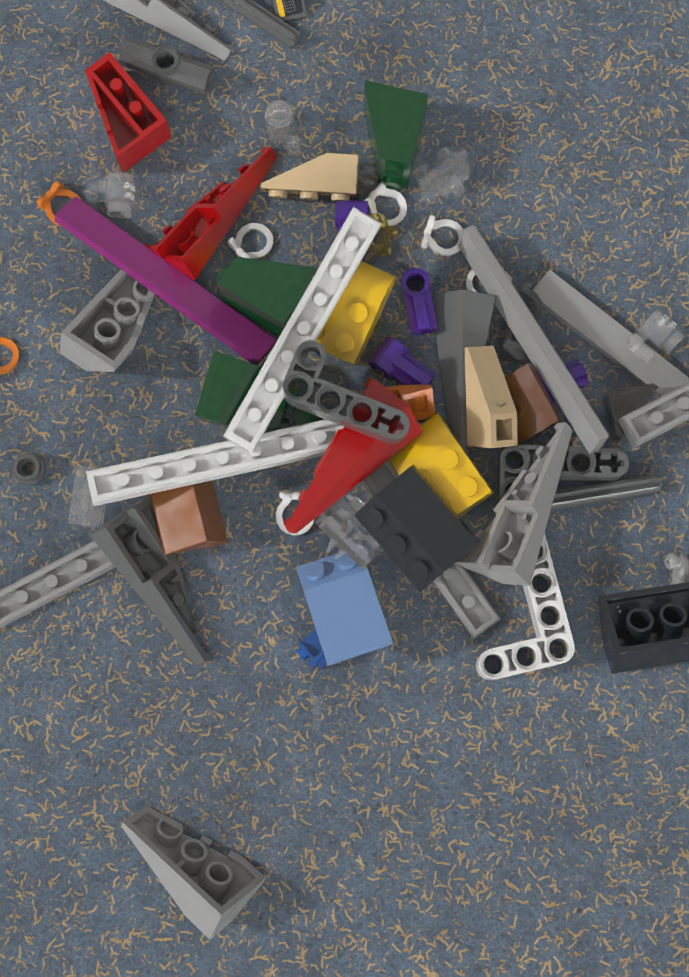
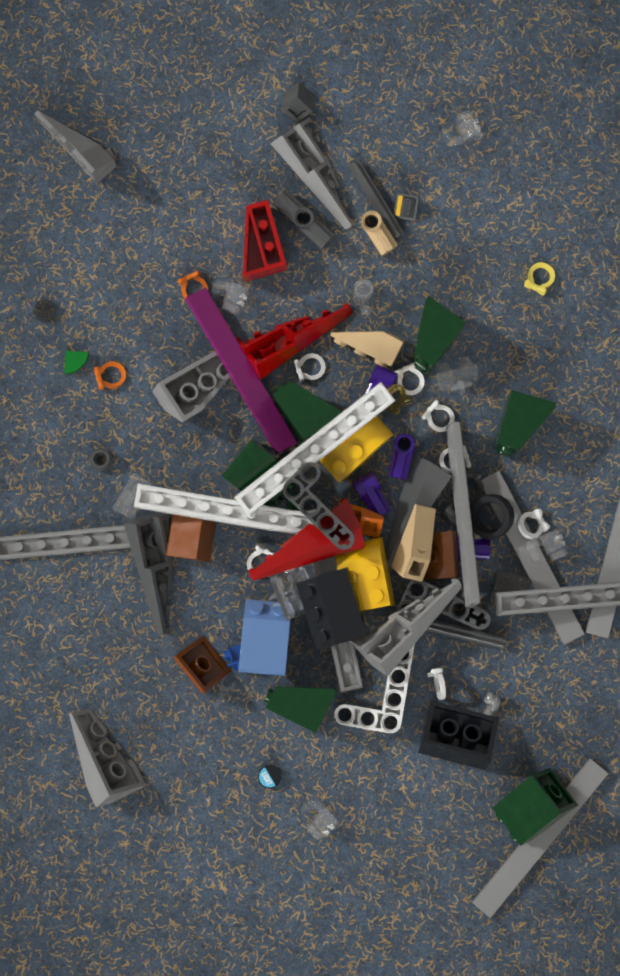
camera: 25 degrees right, 5 degrees up
(268, 45) = (380, 234): none -> tan piece
(274, 679) = (202, 664): none -> dark orange slope
(428, 792) = (269, 776): none -> tile
(430, 675) = (300, 704): none -> dark green slope
(501, 31) = (529, 283): none -> light yellow piece
(528, 821) = (323, 822): none -> clear piece
(548, 192) = (519, 421): none -> dark green slope
(588, 314) = (508, 512): none -> black tyre
(589, 557) = (439, 682): none -> white piece
(622, 305) = (536, 514): none -> white piece

